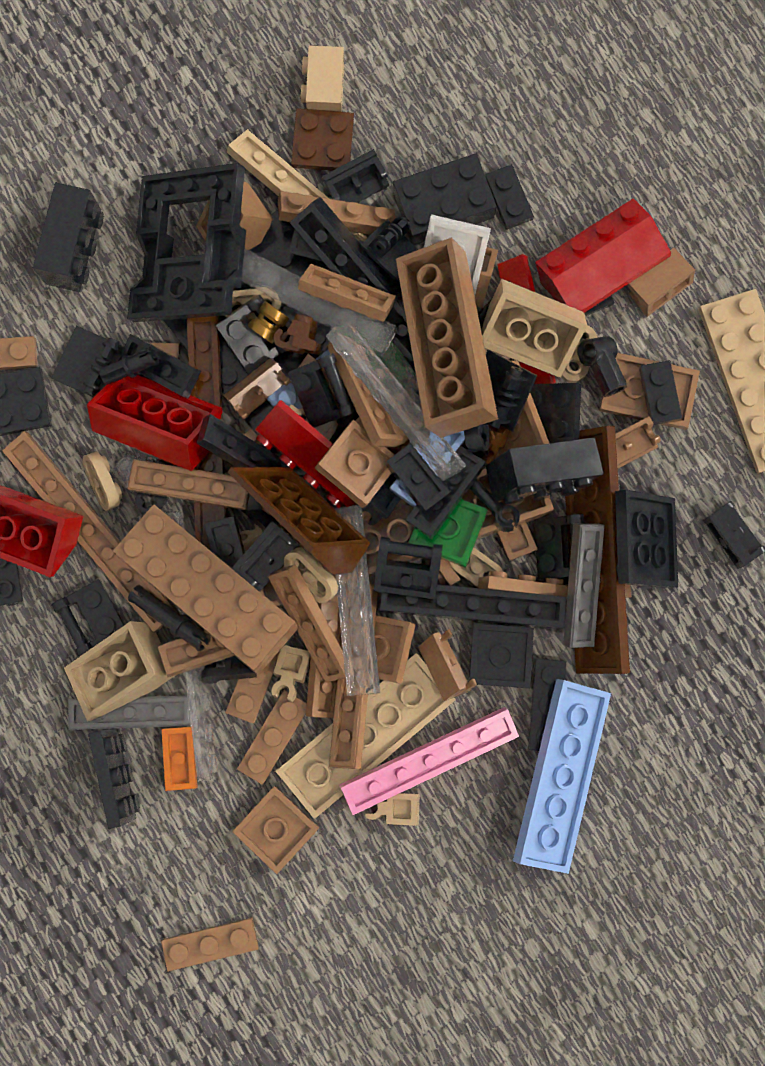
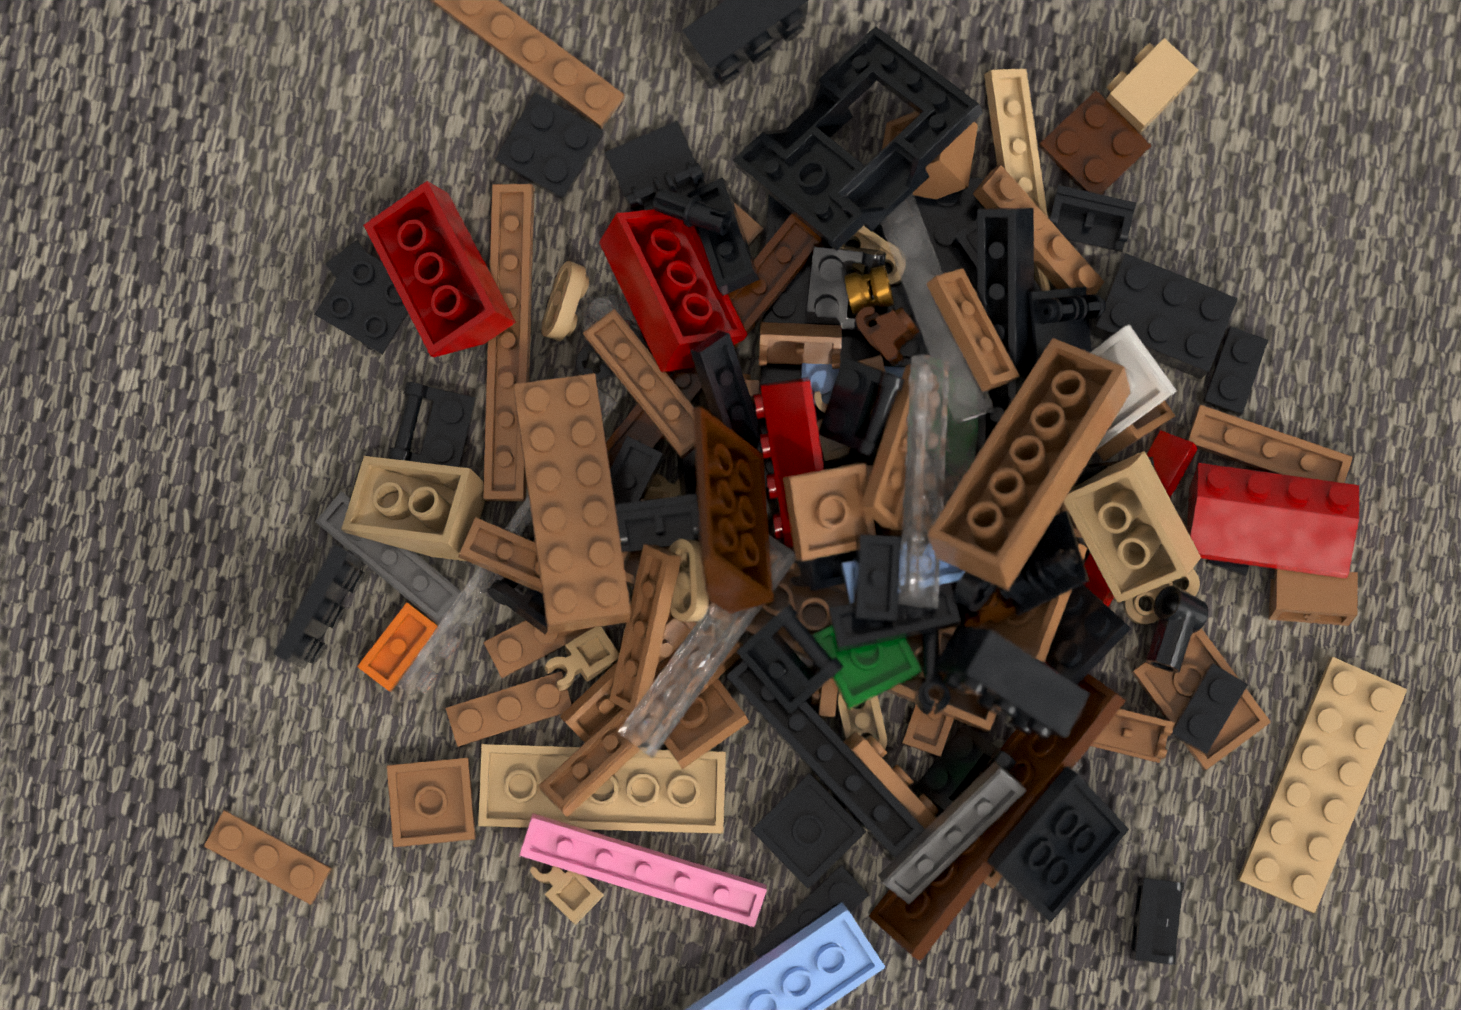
camera: 40 degrees right, 0 degrees up
(178, 624) = (514, 514): black pin -> none
(445, 666) = (742, 790): medium nougat hinge -> none
(561, 224) = (1265, 447): none -> medium nougat plate

